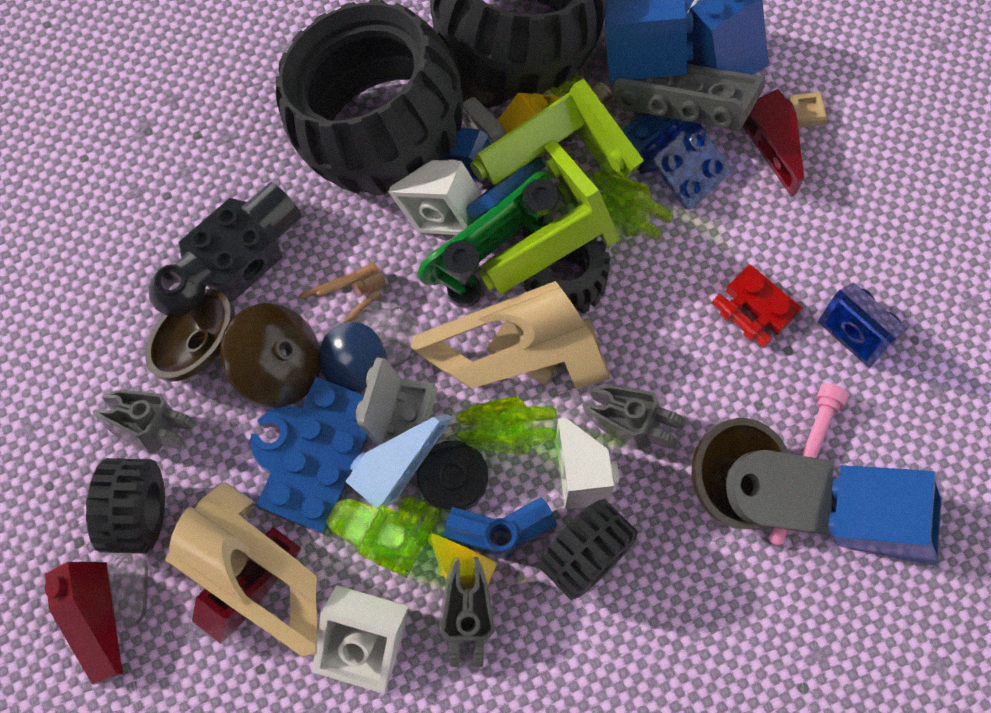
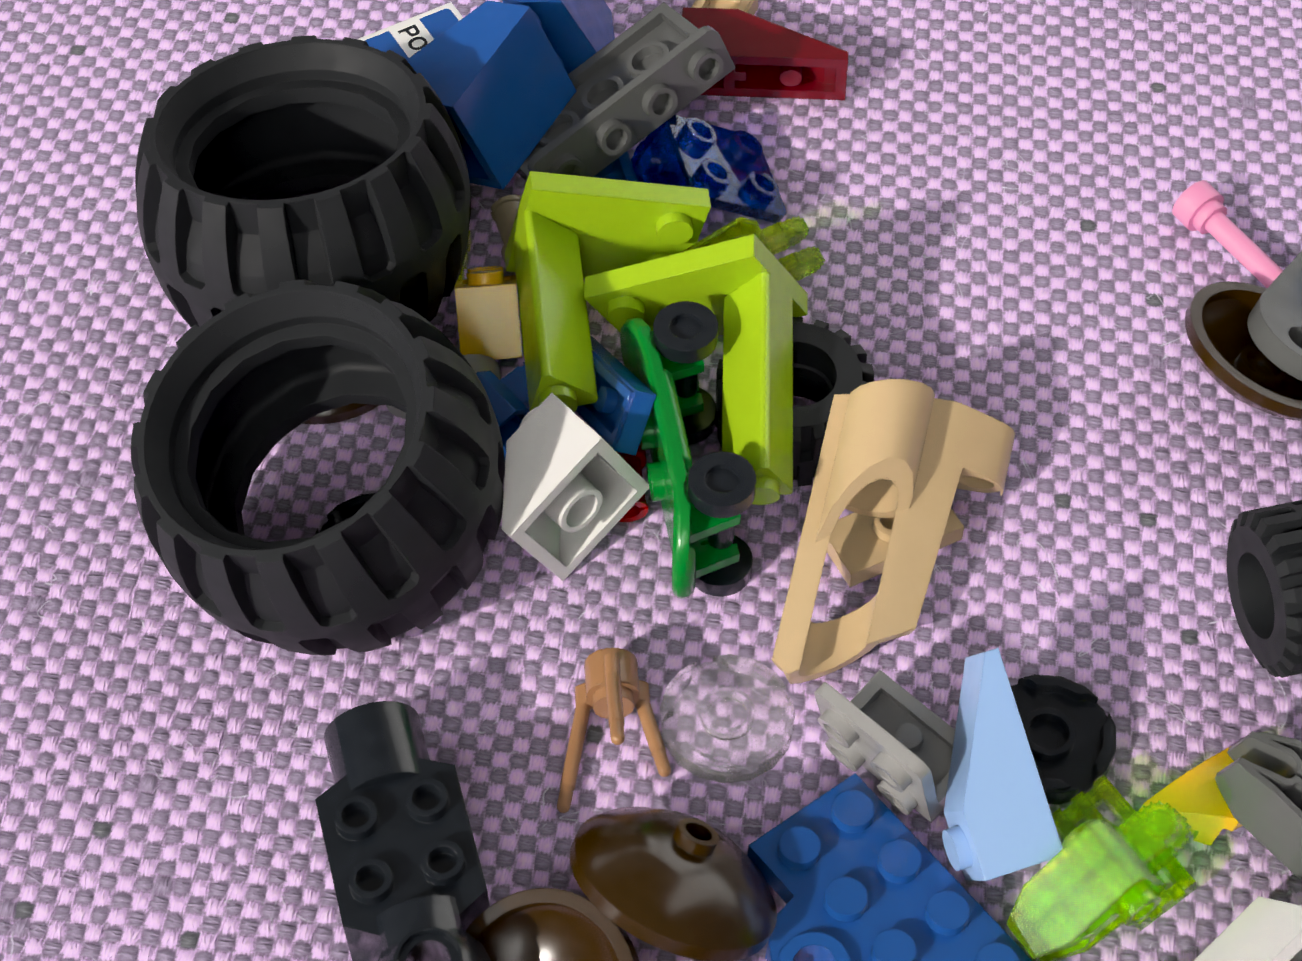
camera: 60 degrees left, 15 degrees down
(349, 354) = (745, 769): dark blue dish -> none
(505, 425) = (1018, 602): clear neon green hinge -> none
(522, 525) = (1175, 734): blue piece -> none
(583, 466) = (1148, 534): white slope -> none
(632, 416) = (1097, 440): dark grey hinge -> none
(761, 299) = (999, 219): red plate -> none
(861, 324) = (1116, 116): clear blue slope -> none

